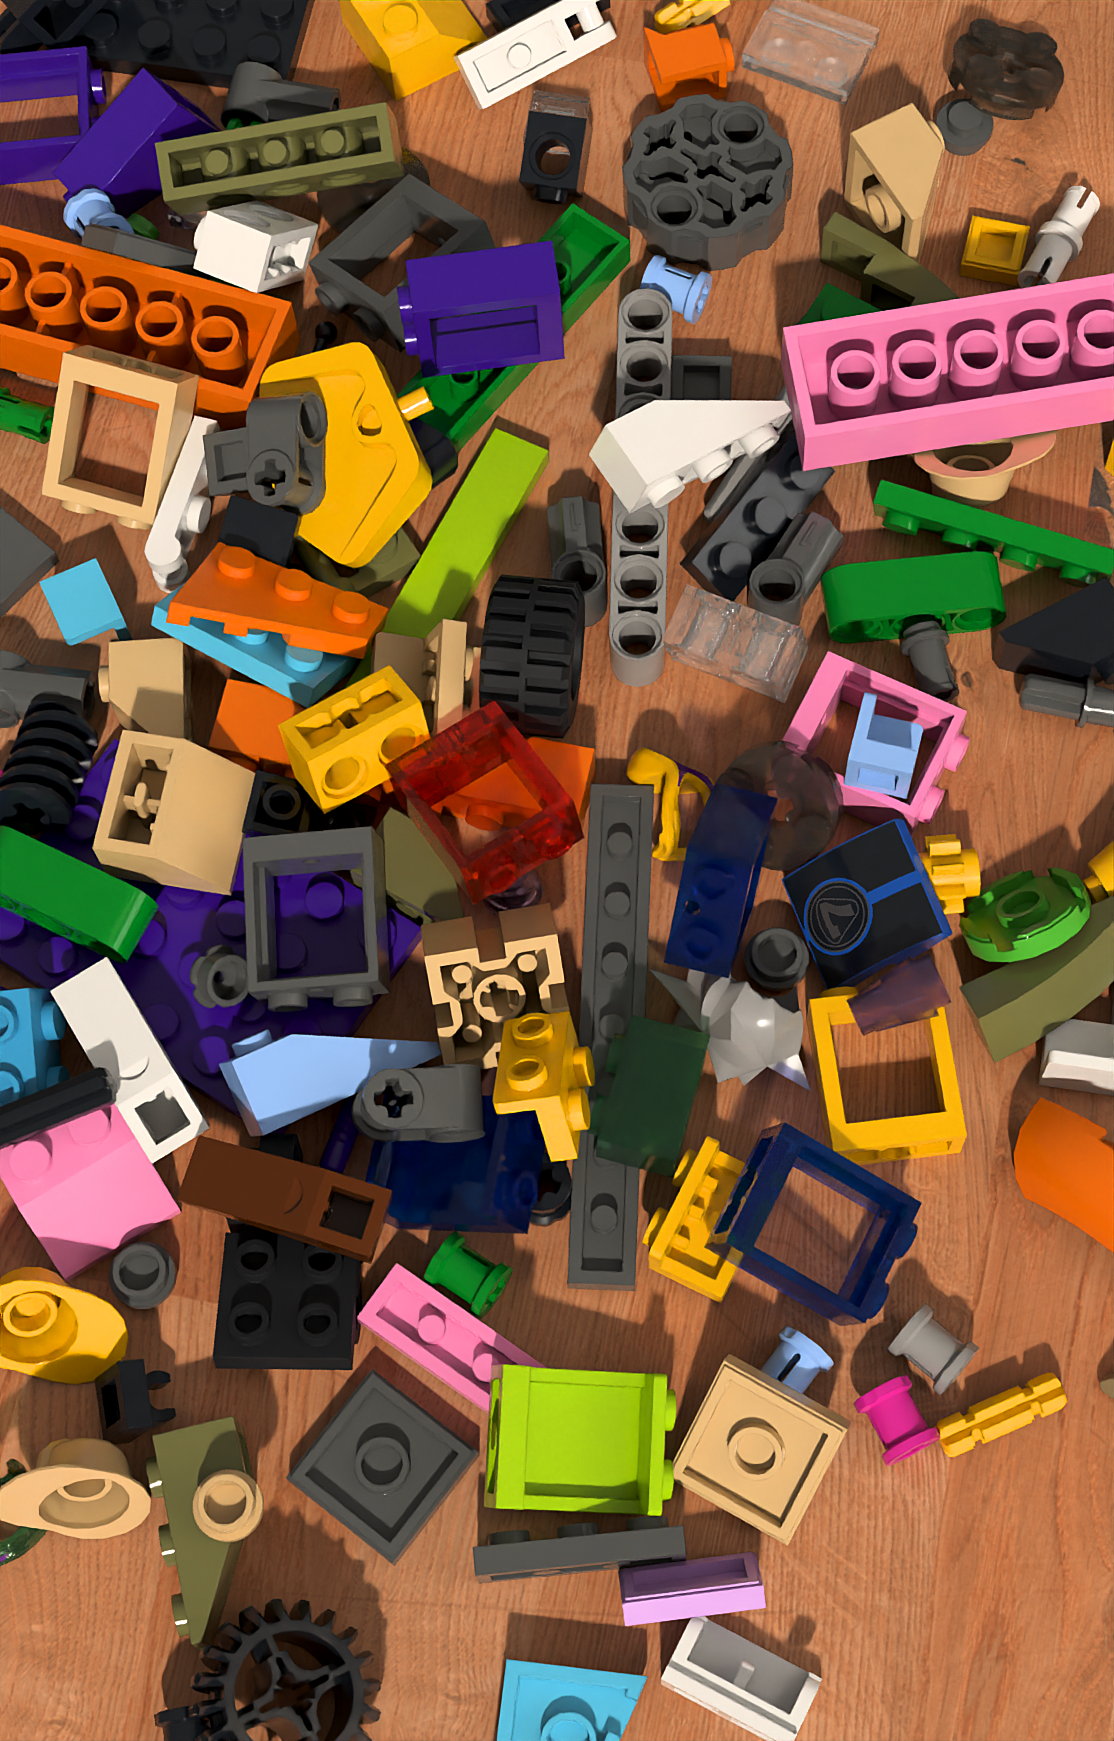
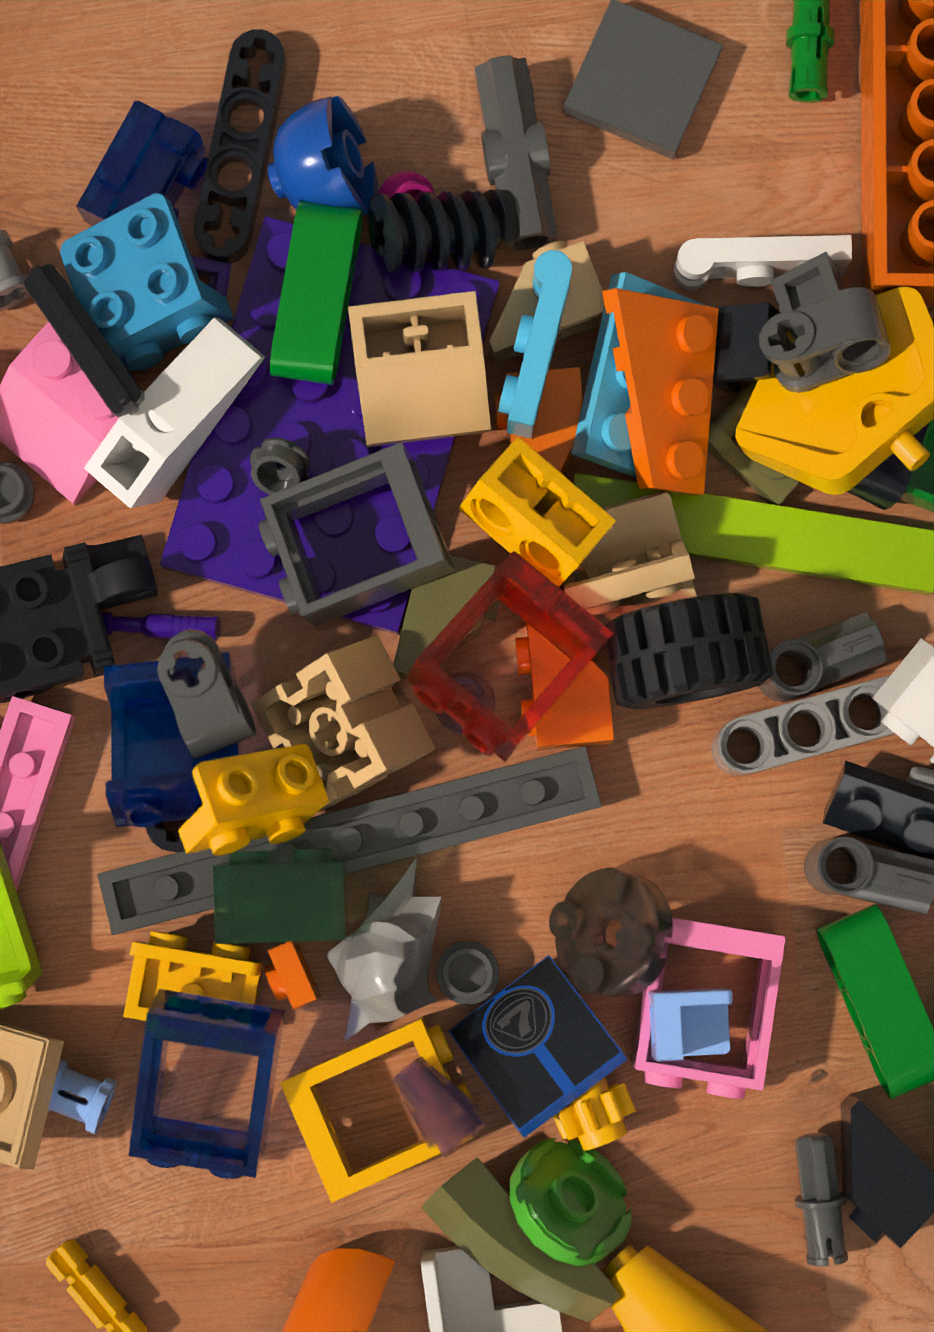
camera: 70 degrees right, 15 degrees up
(84, 603) = (621, 204): medium azure panel -> none
(131, 376) = (856, 166): tan window -> none
(193, 697) = (536, 341): none -> medium azure plate
(284, 807) = (456, 466): black slope -> none
(287, 1197) = (73, 604): reddish brown slope -> none
(304, 1073) = (212, 578): light blue slope -> none
(468, 1274) = (81, 782): green bush -> none
(670, 780) = (625, 811): yellow piece -> none
(720, 880) = (503, 904): clear blue window -> none
(729, 1119) = (290, 975): none -> orange plate
(735, 643) = (770, 842): clear brick -> none
(897, 1420) = (60, 1205): dark pink bush -> none
(929, 659) = (819, 1036): dark grey pin -> none
(933, 1349) = (134, 1221): light grey bush -> none

